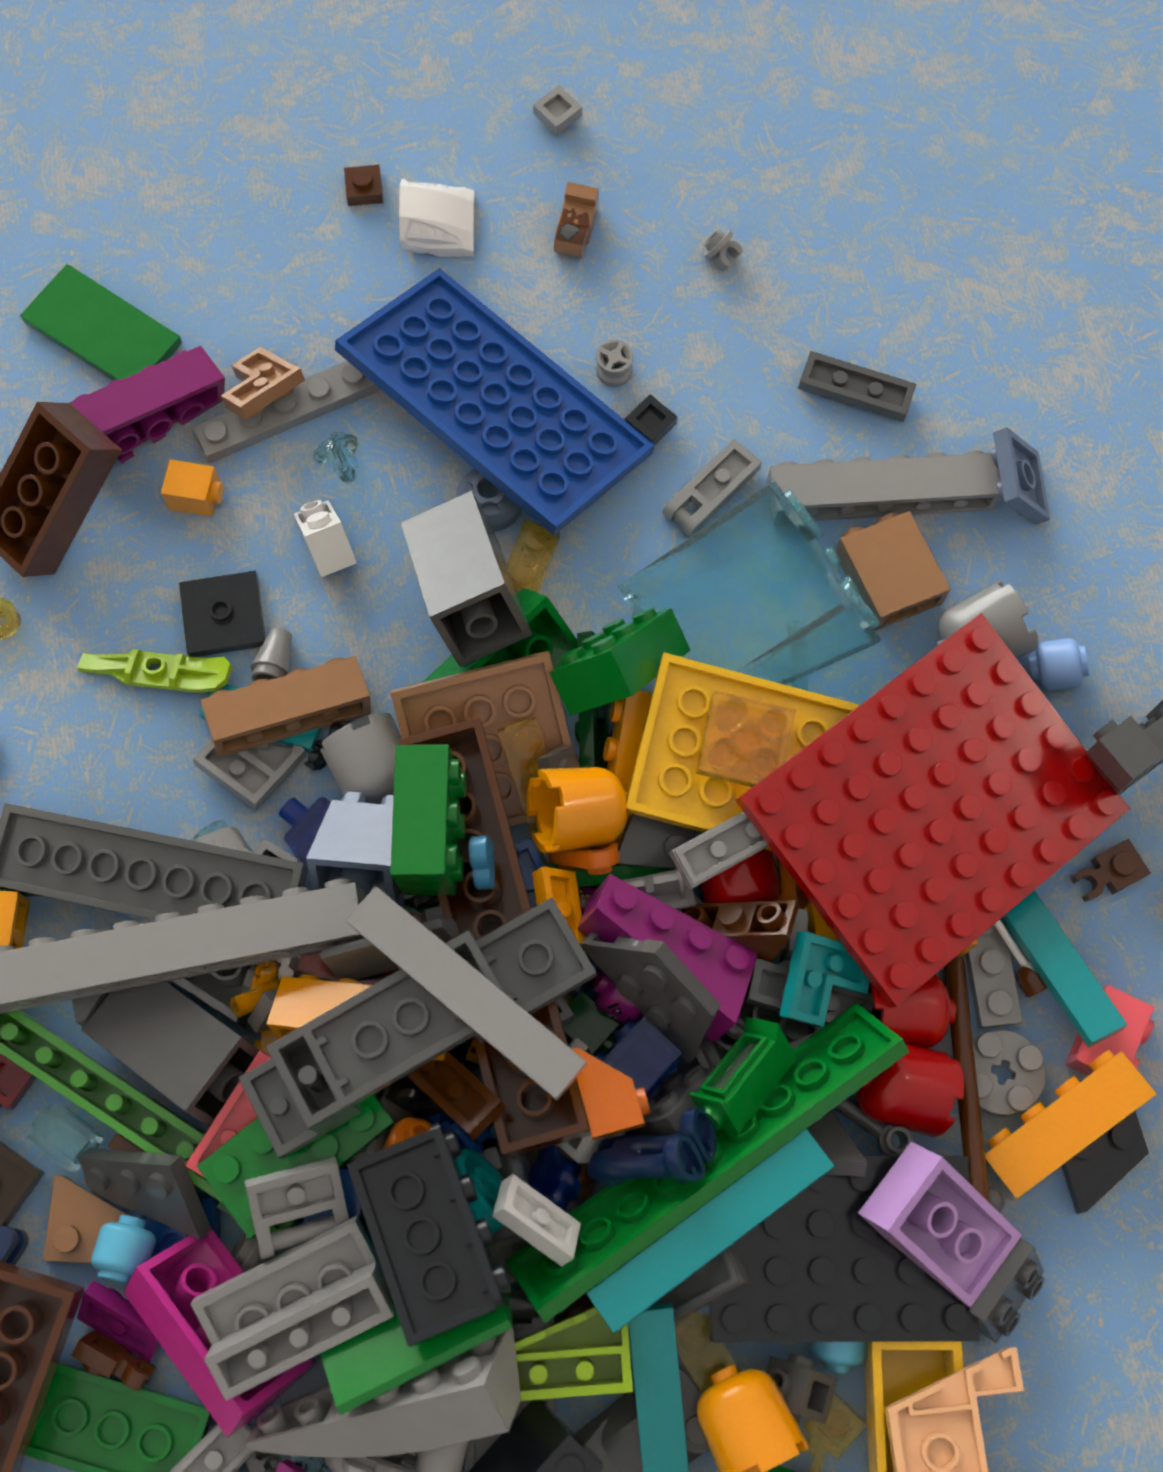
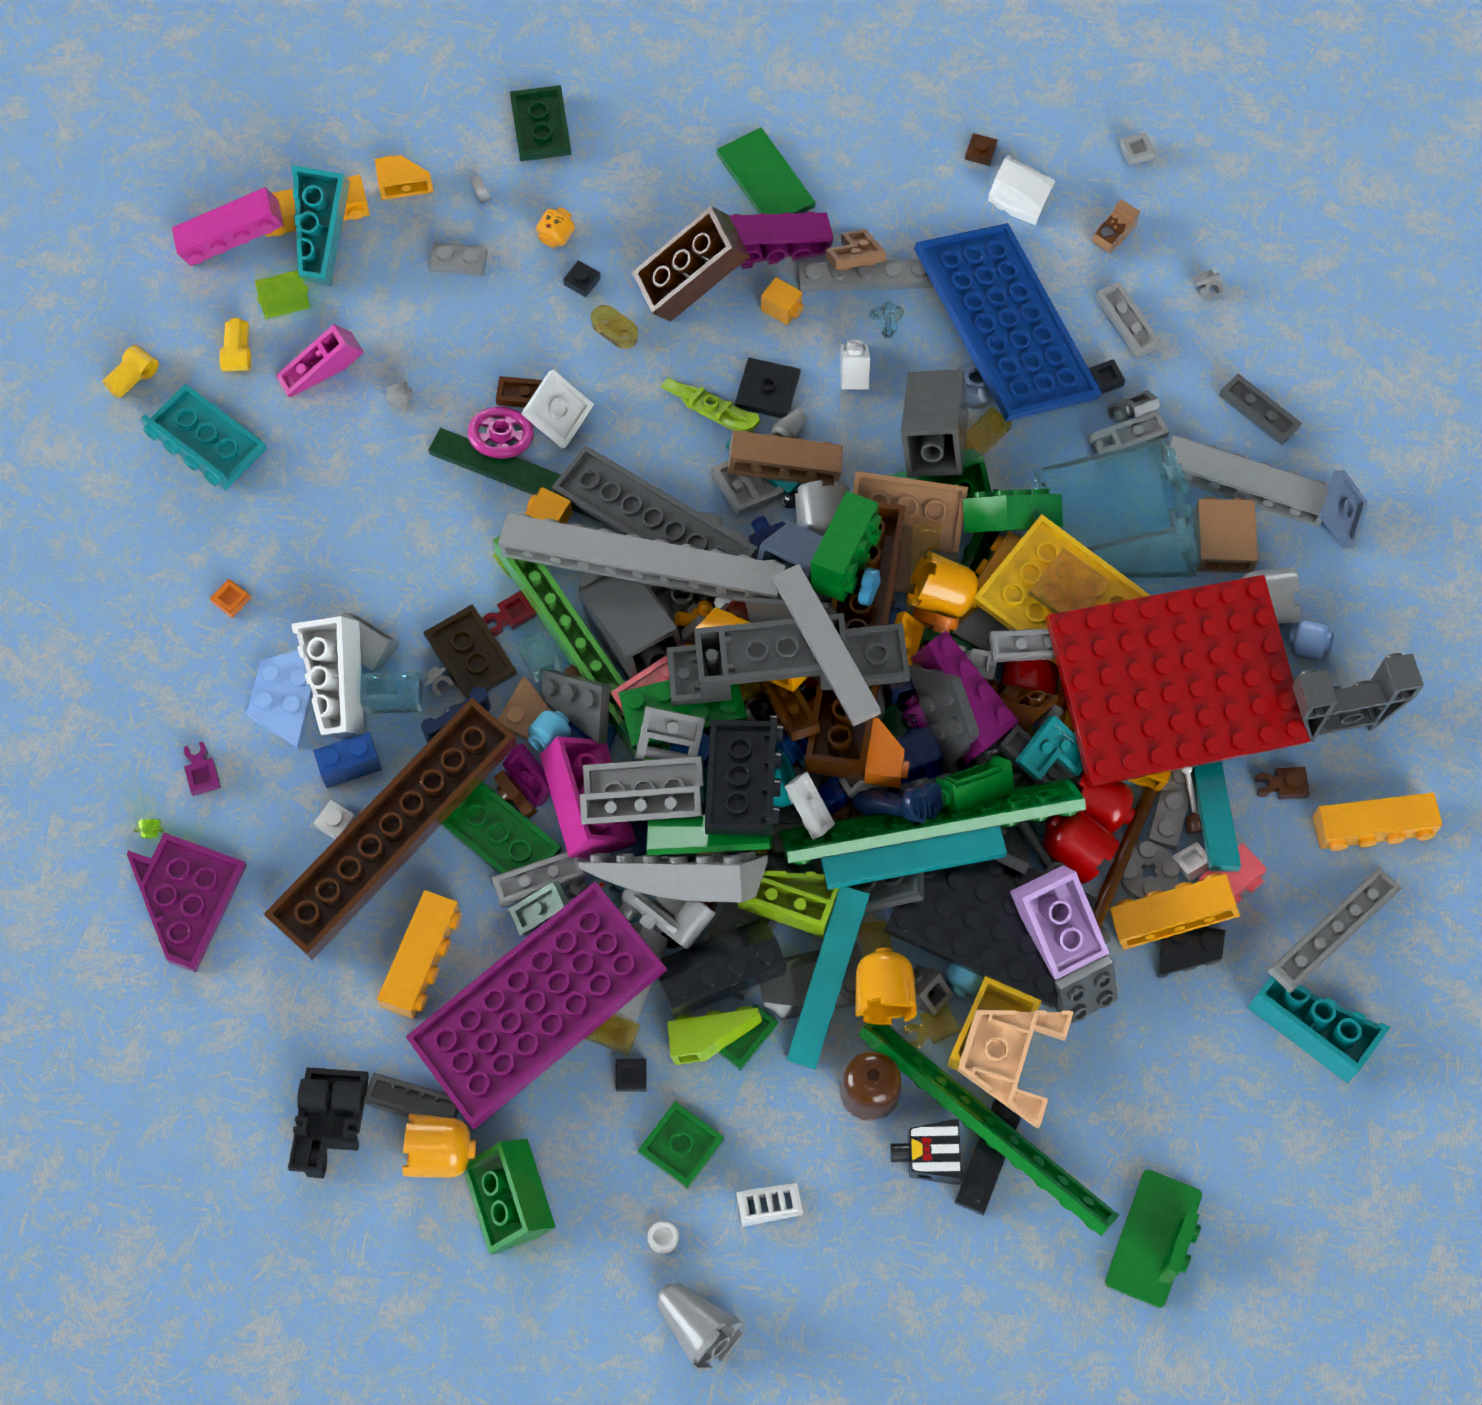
camera: 25 degrees right, 5 degrees down
(610, 354) = (1099, 322): light grey wheel -> none
(645, 335) = (1128, 320): none -> light grey plate
(703, 443) = (1134, 405): none -> dark grey plate
(1052, 1034) = (1192, 861): none -> white plate

